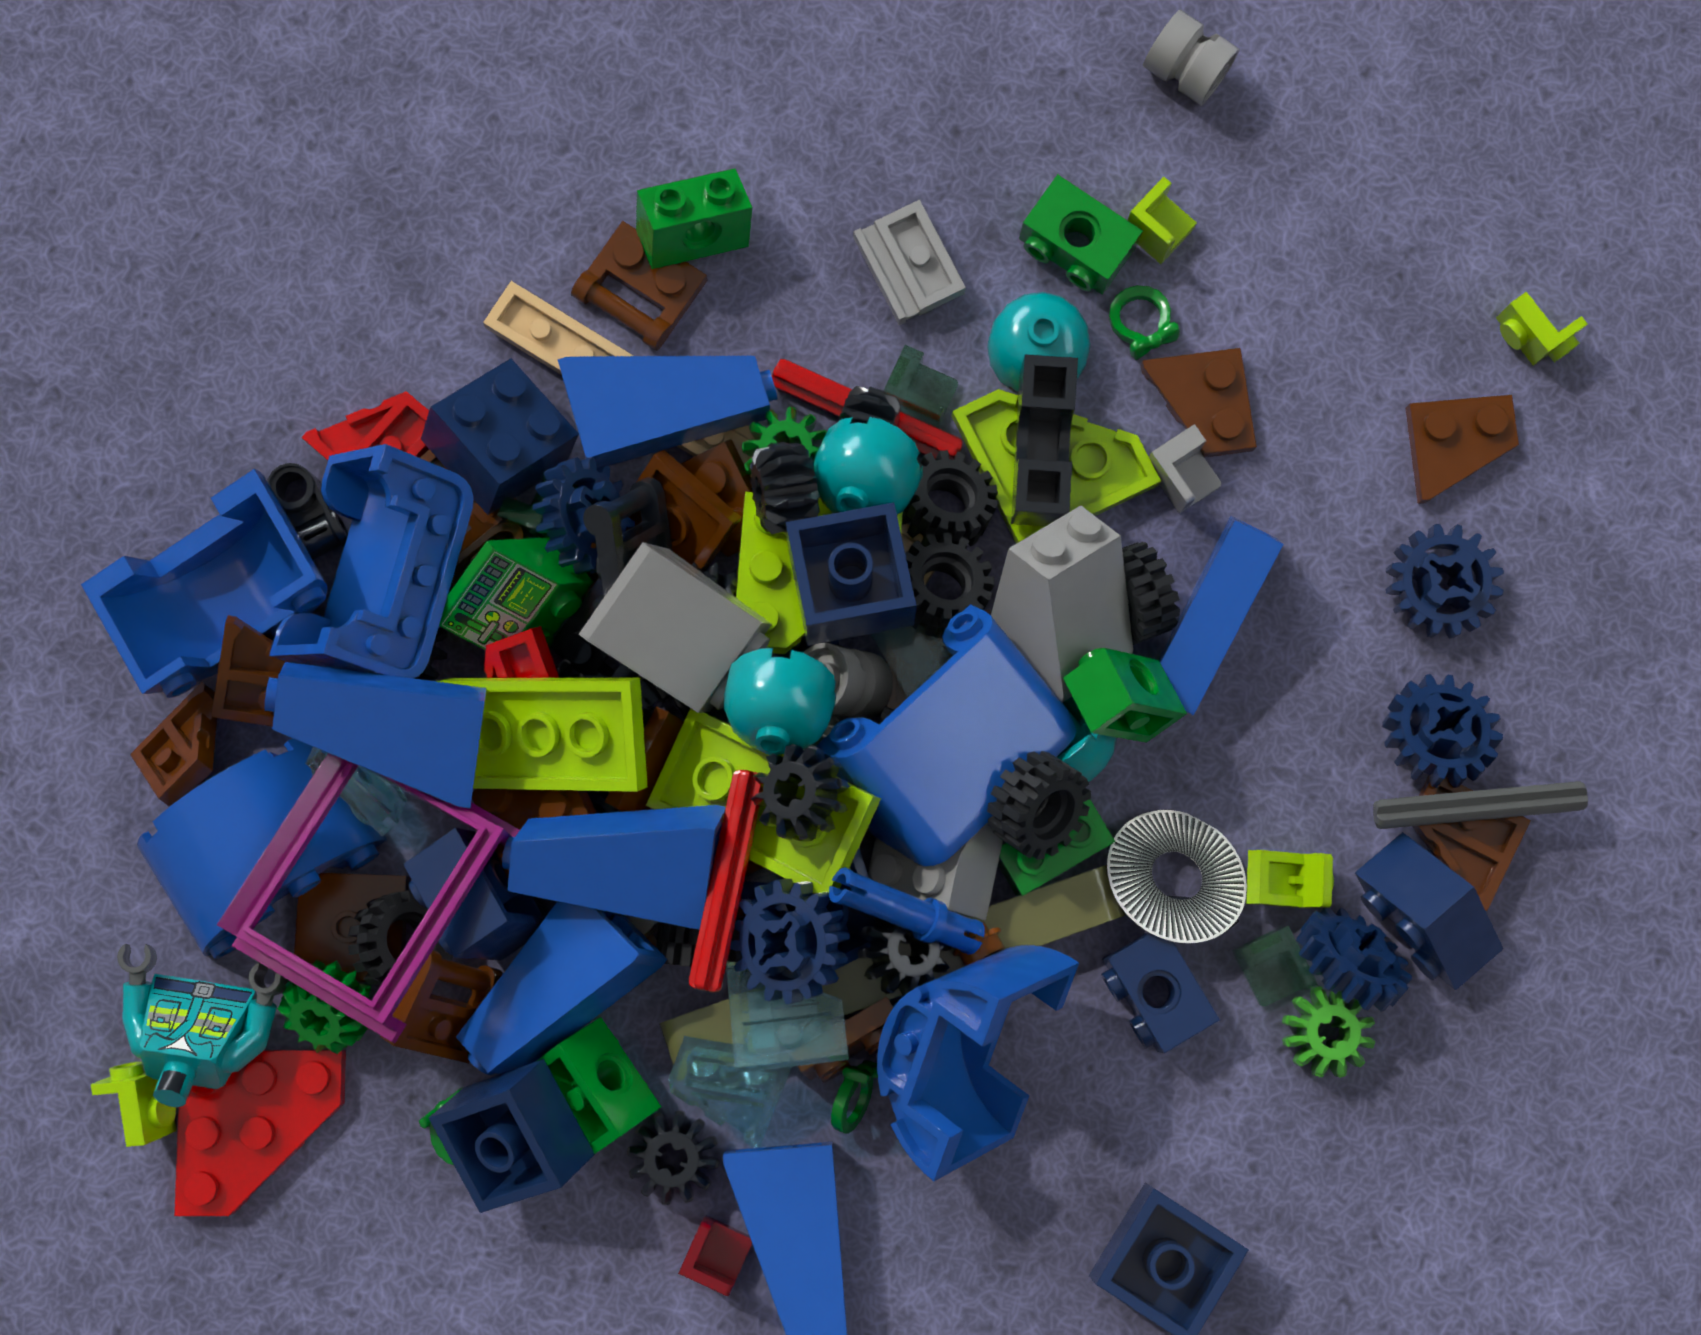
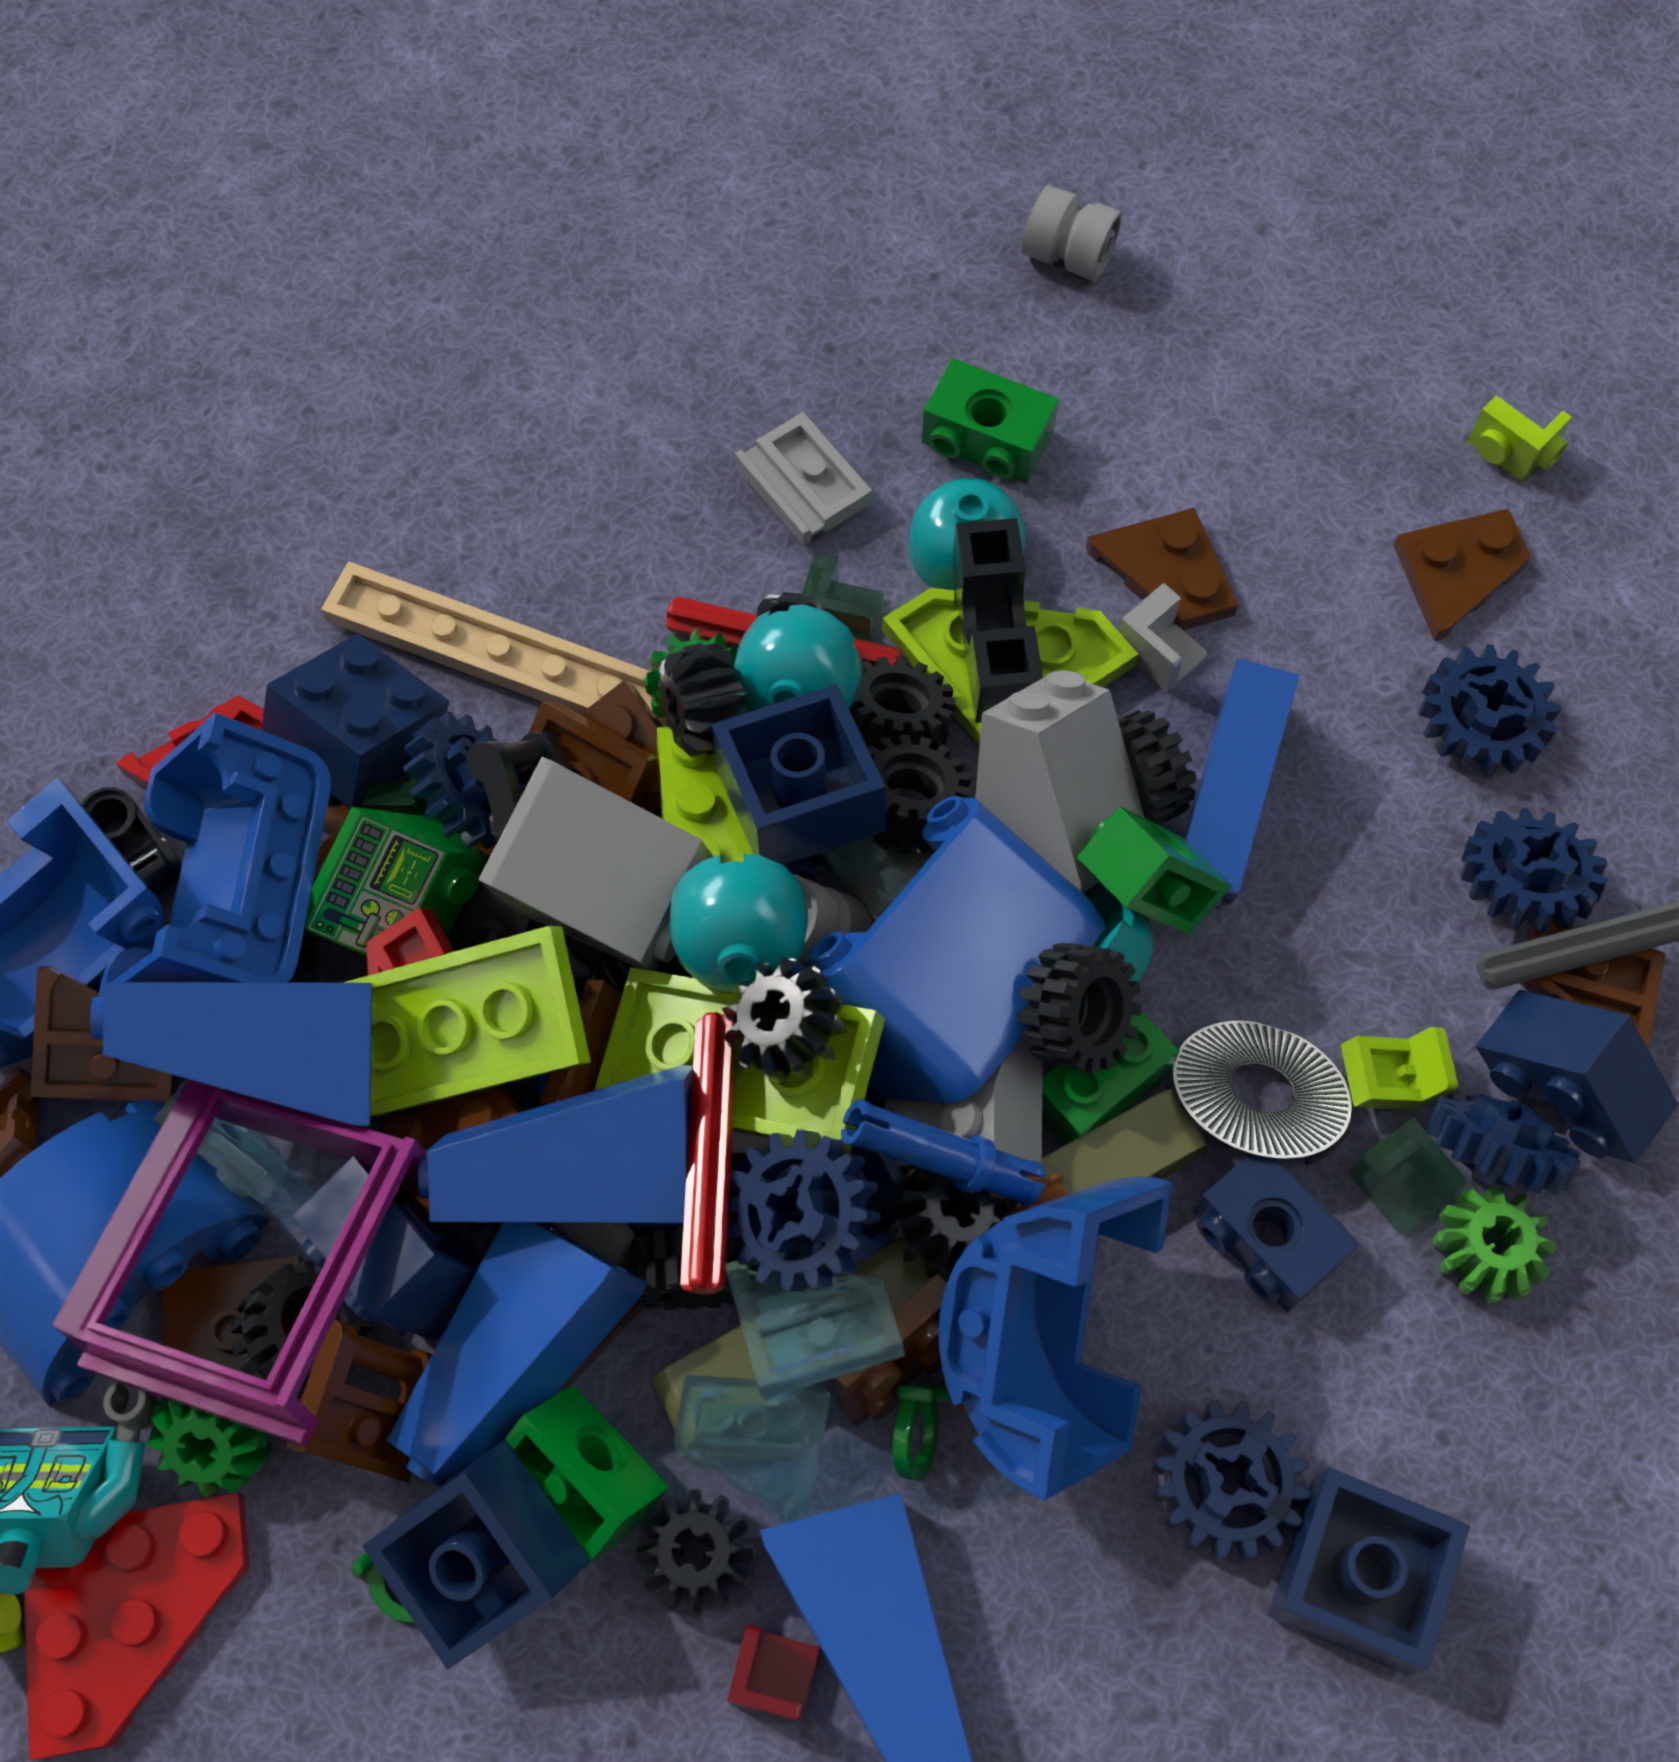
camera: 10 degrees left, 15 degrees down
(660, 402) = (551, 646): blue slope -> none
(667, 287) = (503, 534): reddish brown plate -> none
(693, 218) = (549, 462): green brick -> none
(1064, 1194) = (1256, 1498): none -> dark blue gear
(1139, 344) = (1081, 524): green piece -> none
(1161, 221) = (1081, 400): lime panel -> none

